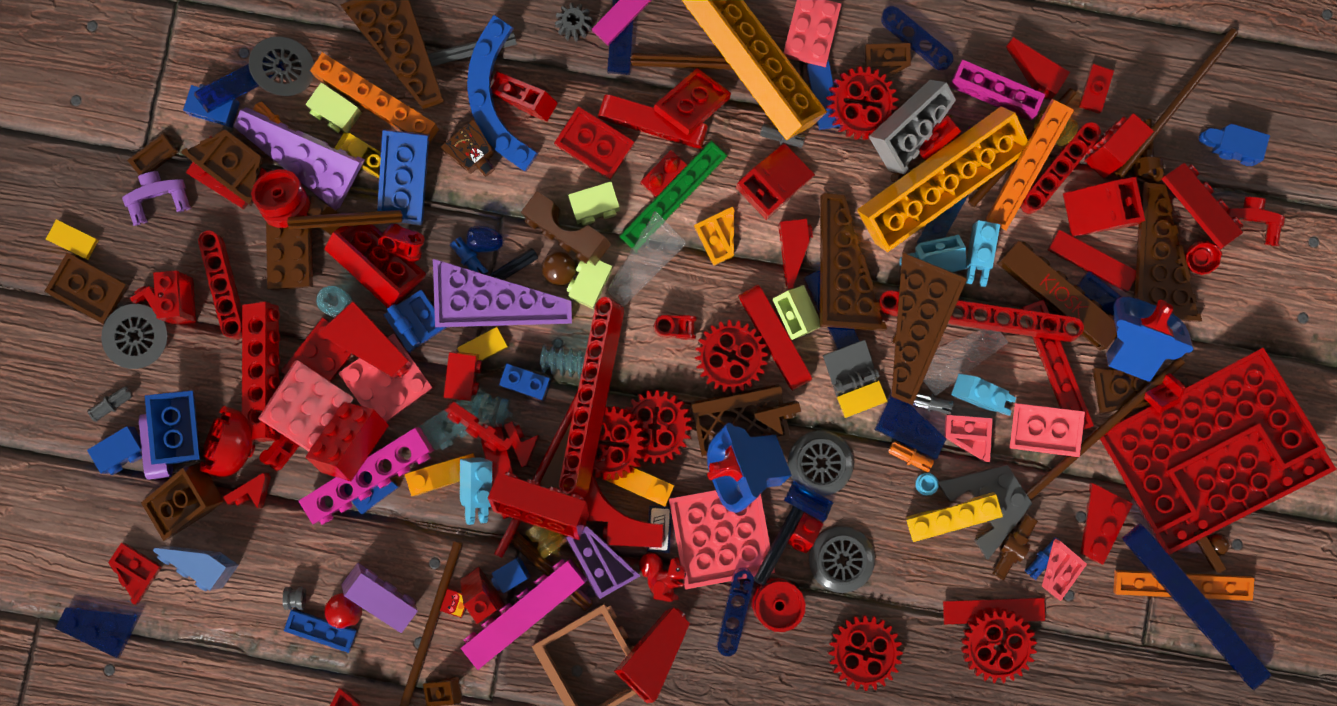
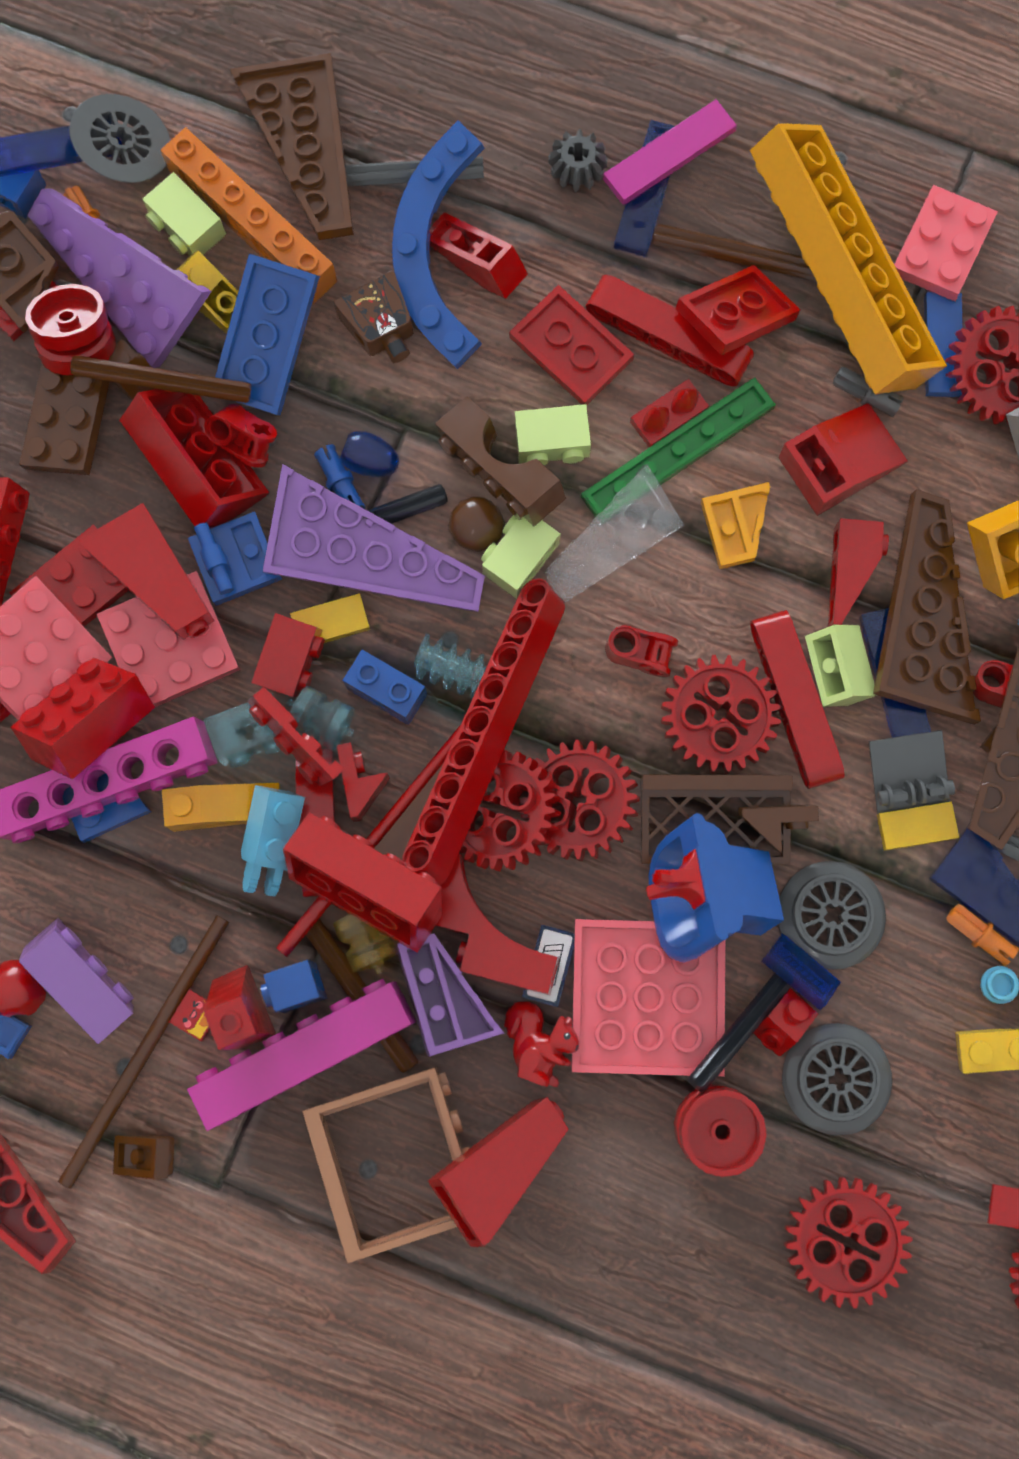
camera: 20 degrees right, 5 degrees down
(333, 300) = (111, 495): clear light blue piece -> none
(645, 486) = (541, 891): light orange slope -> none
(733, 611) = (650, 1128): clear blue beam -> none

